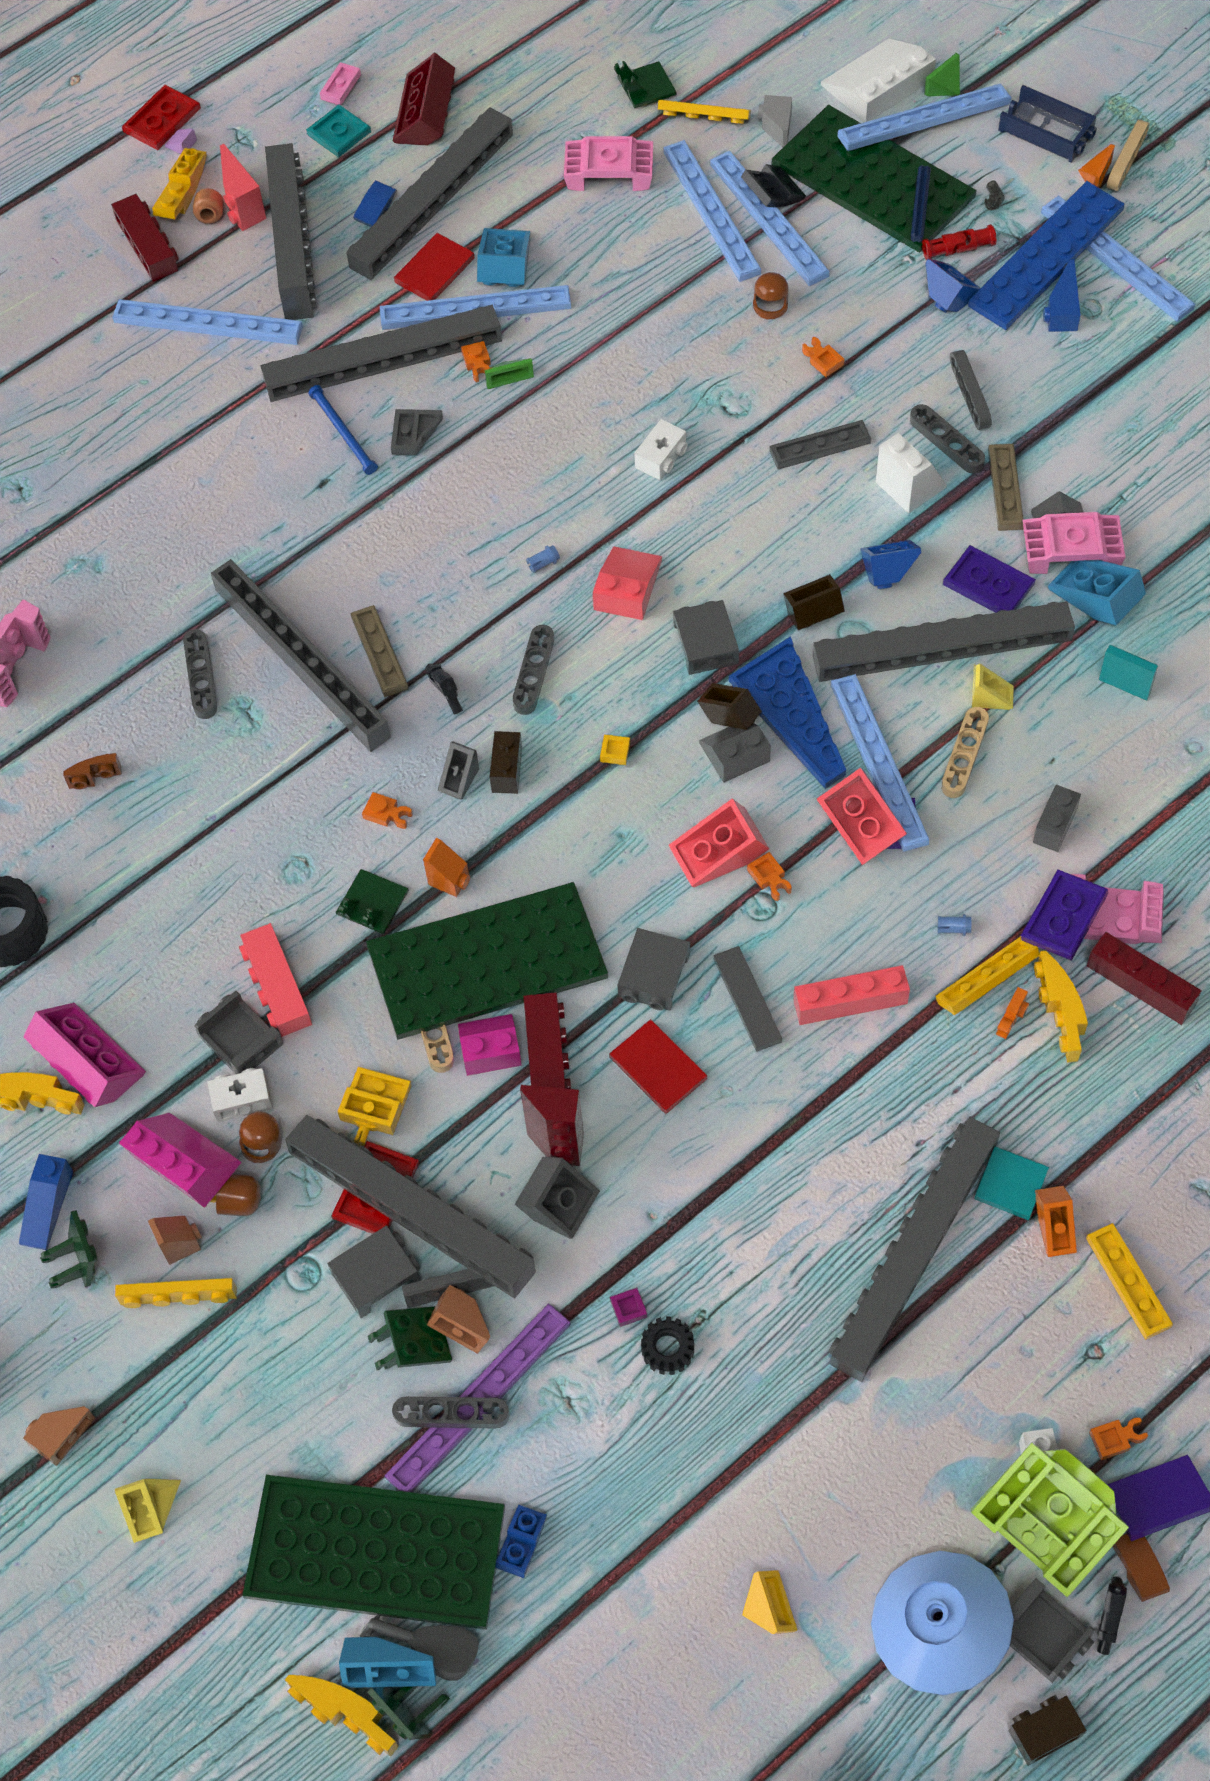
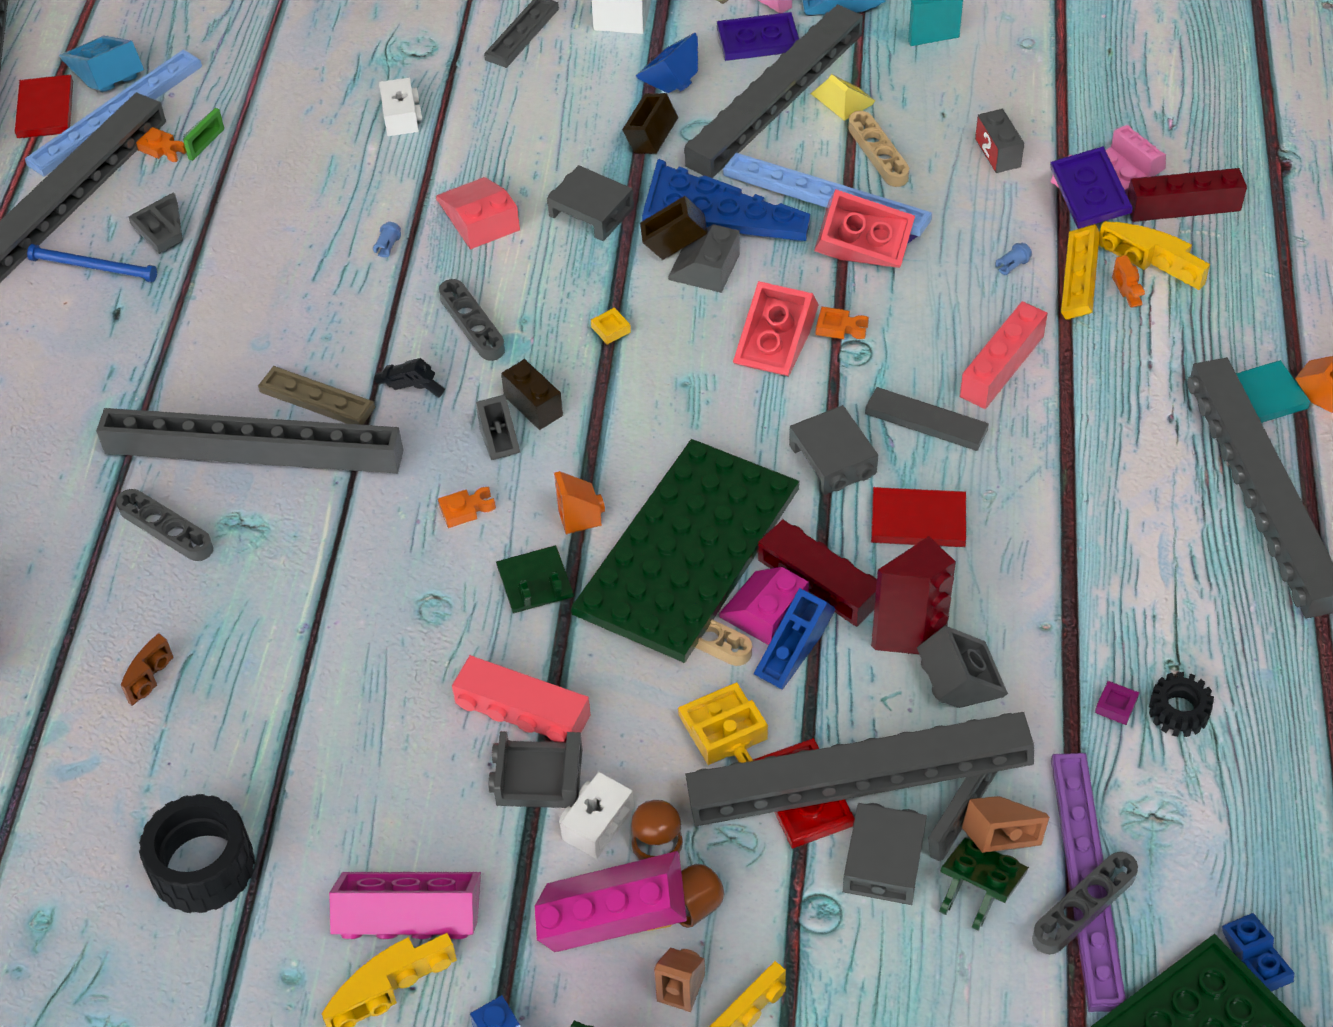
camera: 45 degrees left, 10 degrees down
(480, 1082) = (794, 638): none -> blue slope

